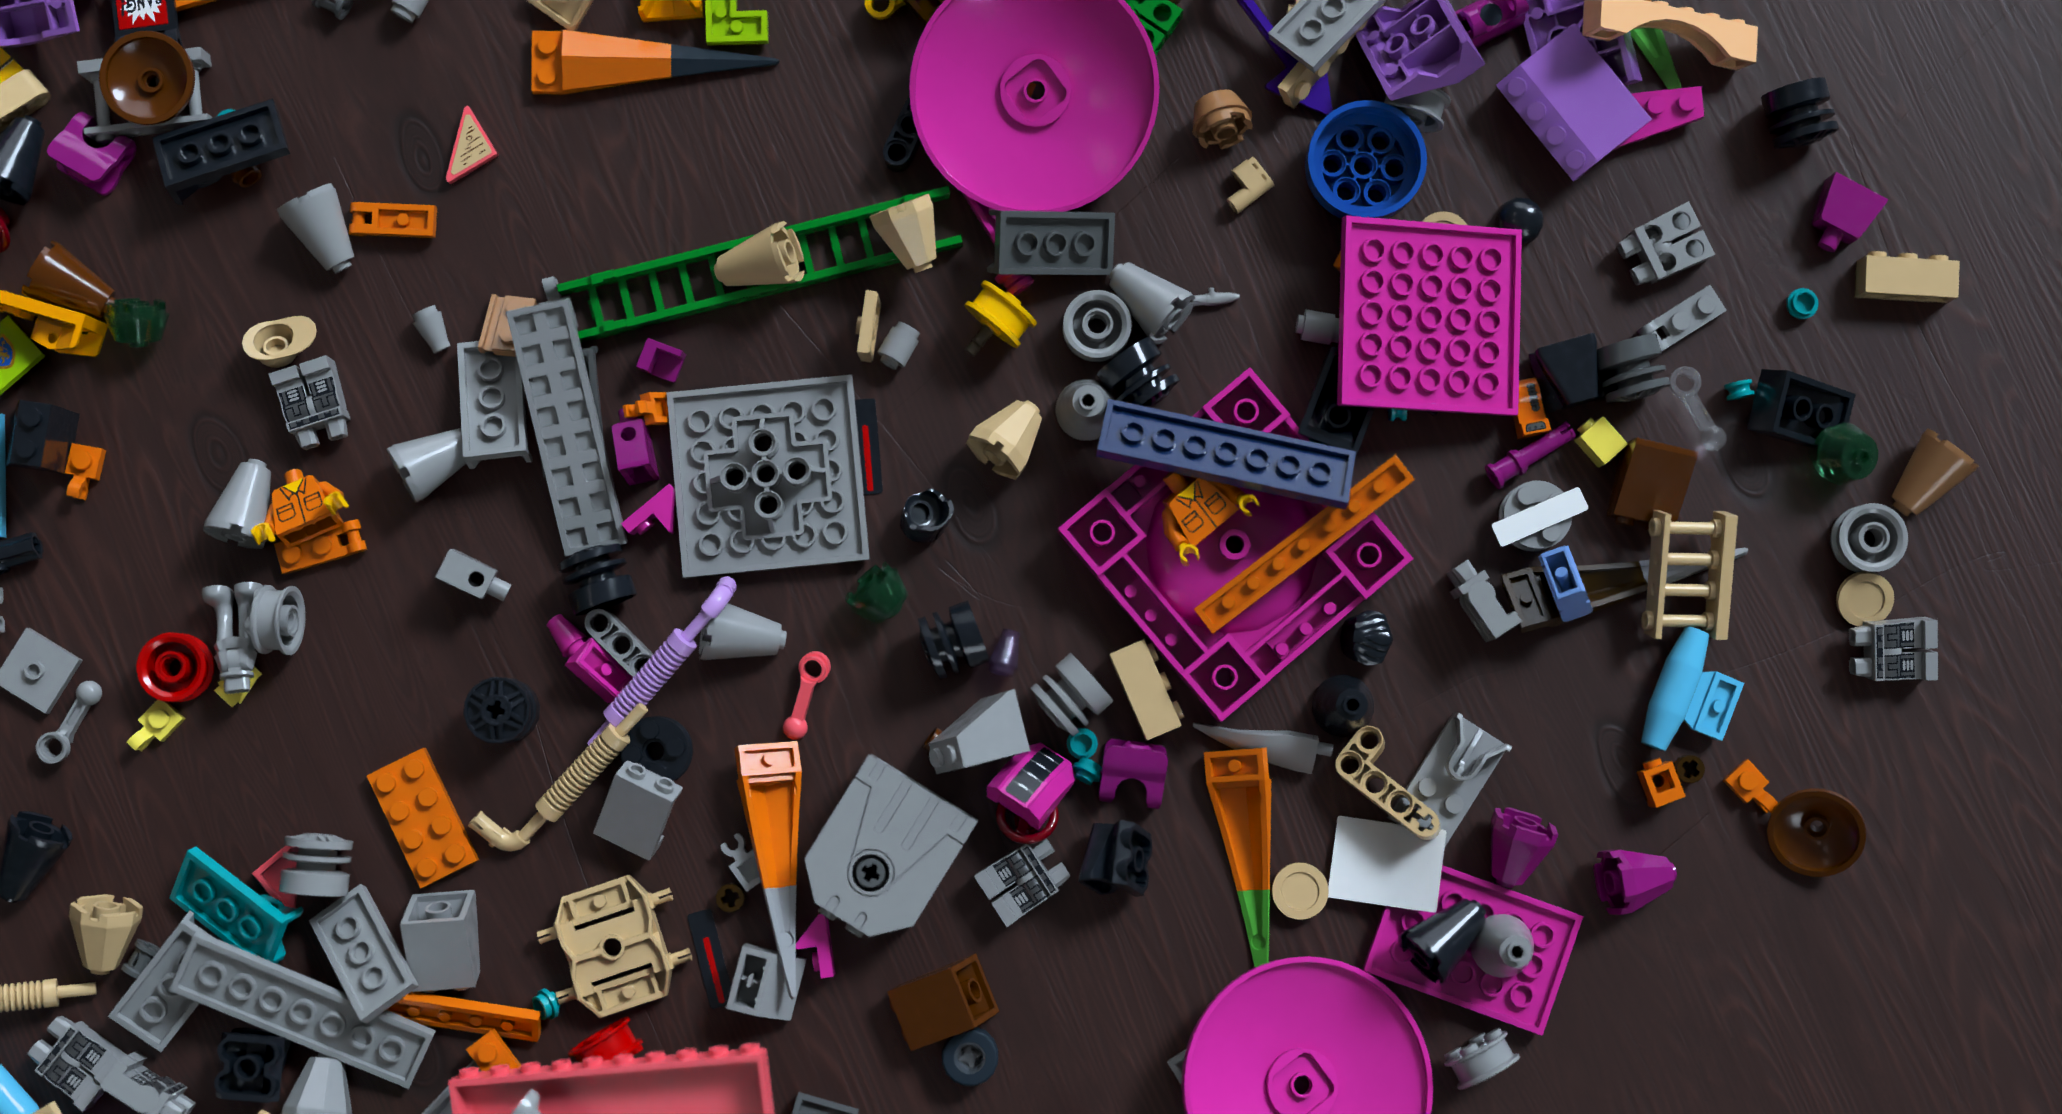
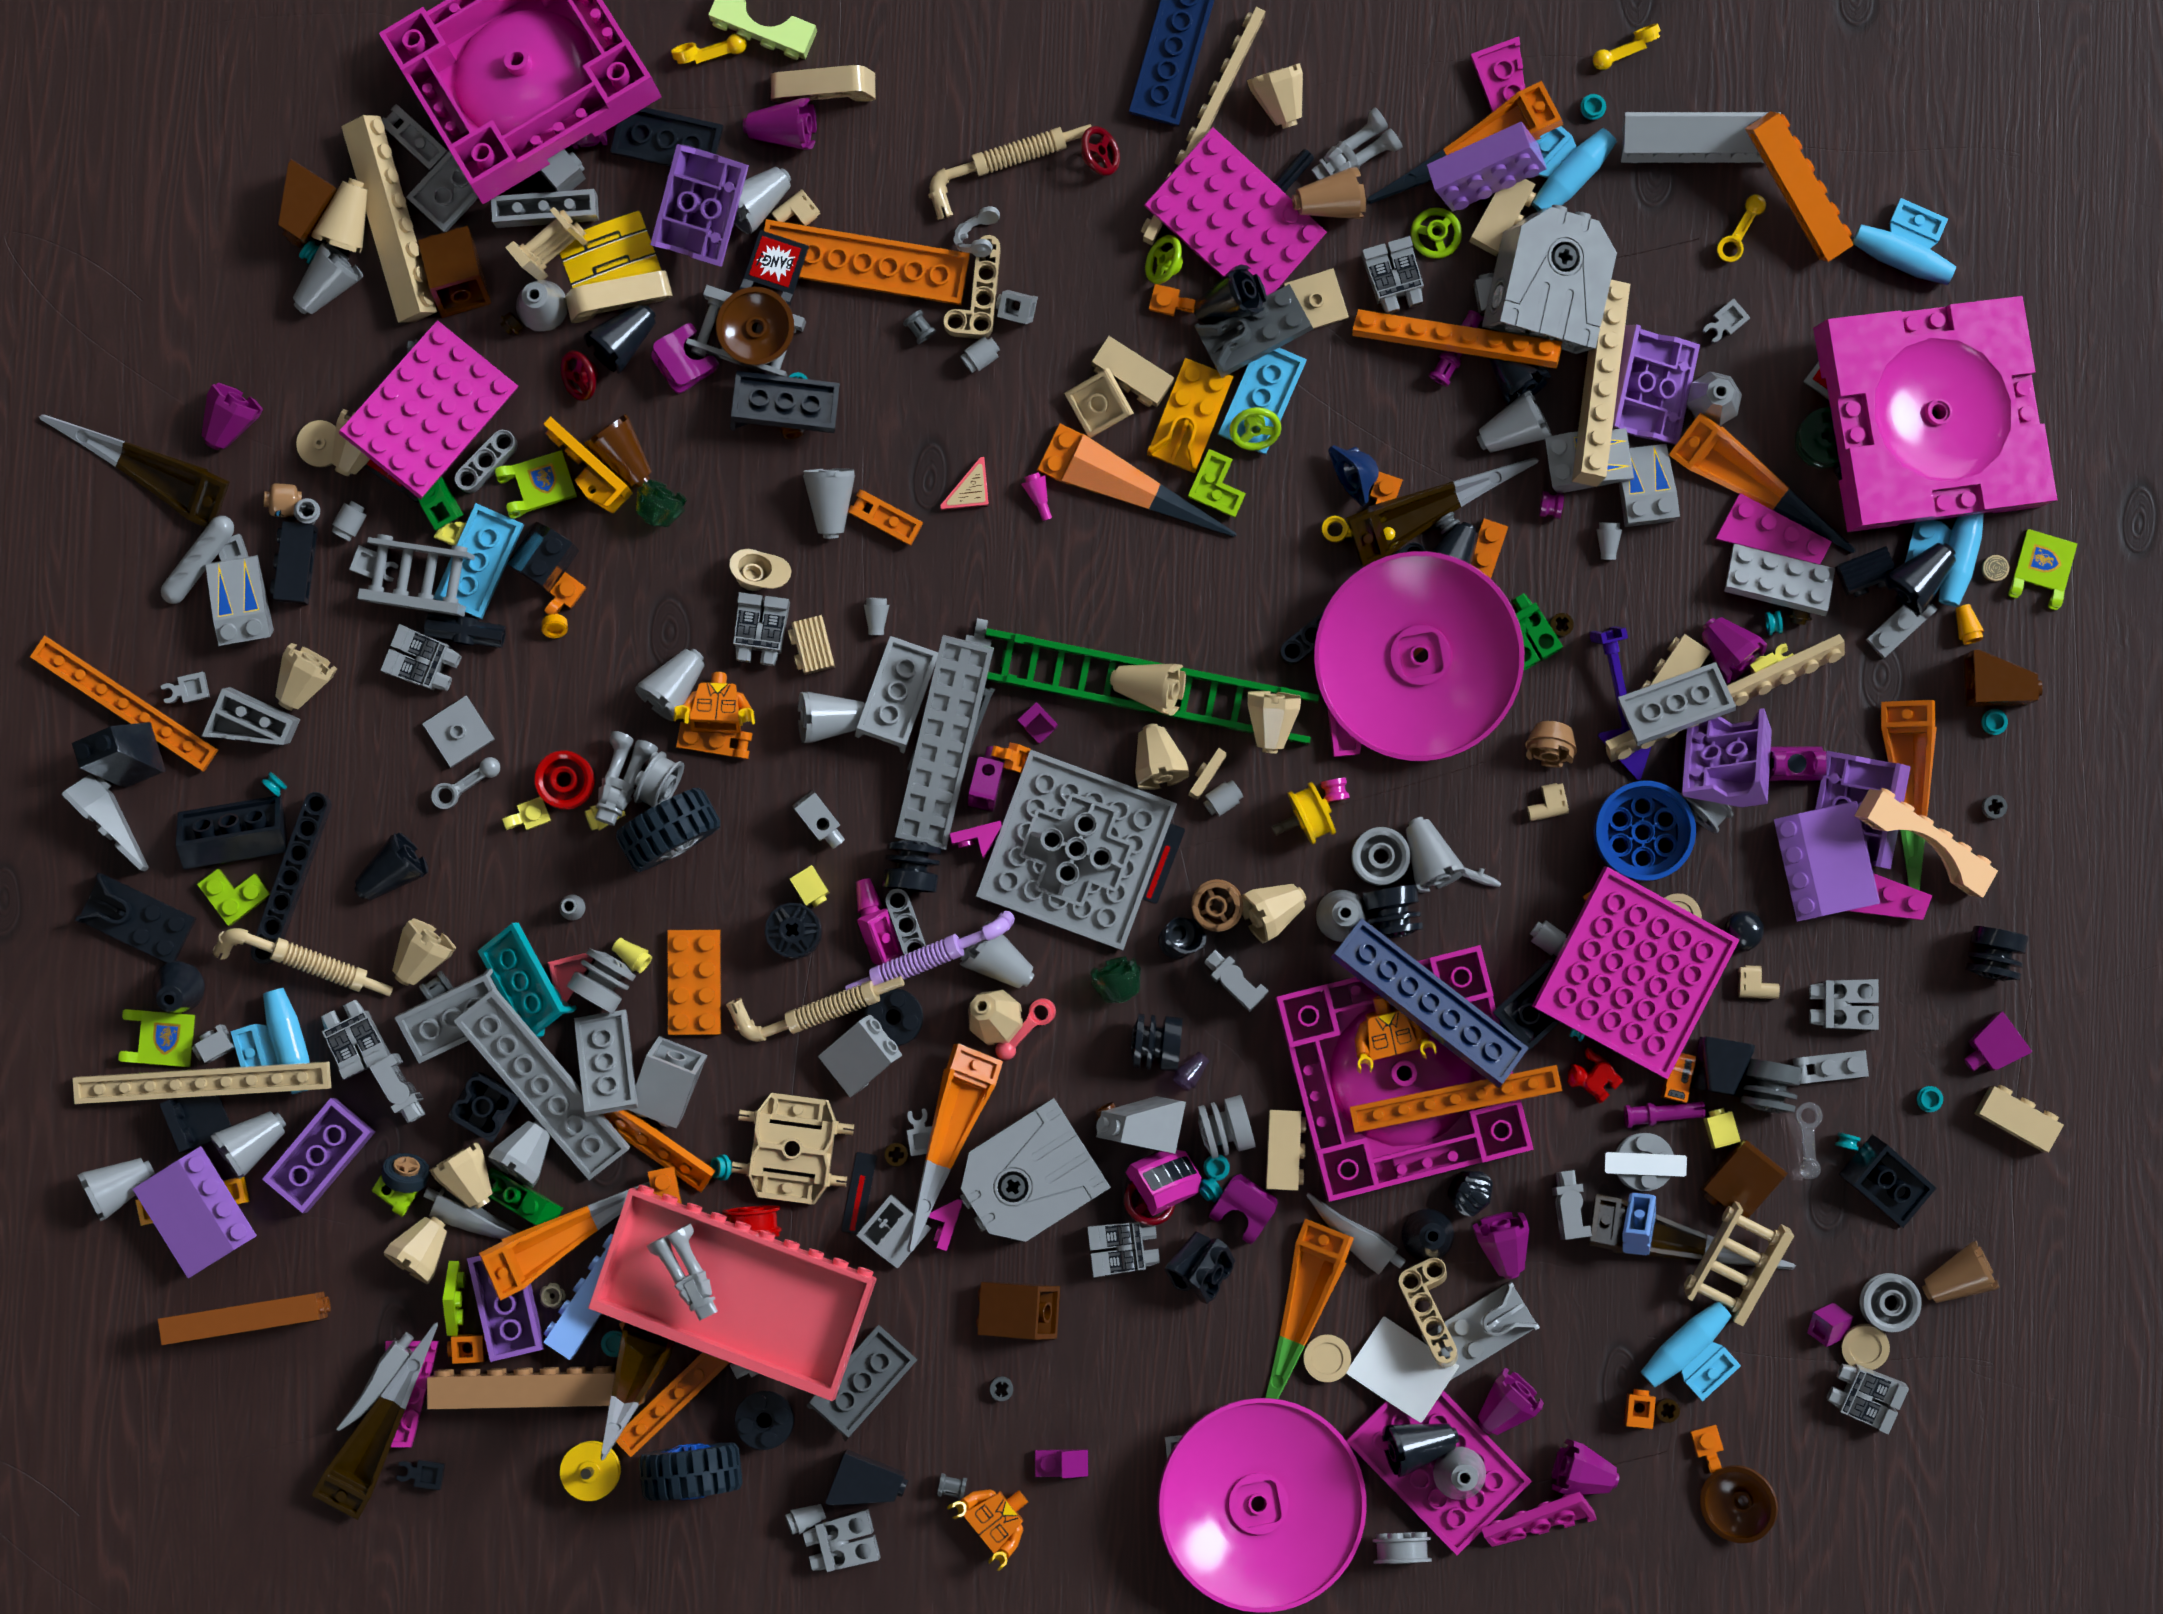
camera: 30 degrees right, 0 degrees up
(87, 506) = (554, 626): none -> light orange tile
(255, 799) = (577, 912): none -> light grey cone
(307, 666) = (668, 829): none -> black wheel
(342, 821) = (634, 956): none -> light yellow cone
(377, 392) = (812, 645): none -> tan brick
(496, 331) = (927, 640): medium nougat plate -> none
(498, 654) = (810, 887): none -> light yellow brick
(540, 112) = (1037, 491): none -> dark pink cone
(764, 697) = (995, 1017): none -> tan cone
(809, 337) = (1158, 759): none -> tan cone
(947, 461) = (1217, 905): none -> medium nougat cone
(956, 1097) = (993, 1388): none -> dark grey bush
(975, 1065) = (1014, 1367): black wheel -> none
(1005, 535) = (1234, 982): none -> light grey hips
(1053, 242) = (1377, 778): dark grey plate -> none
(1429, 673) = (1504, 1242): none -> magenta cone
(1441, 453) = (1596, 1079): none -> red animal
(1555, 273) = (1751, 987): none -> tan piece
(1611, 954) = (1539, 1520): none -> dark pink wing
(1816, 593) = (1829, 1324): none -> magenta panel
(1845, 454) = (1903, 1229): clear green cone -> none

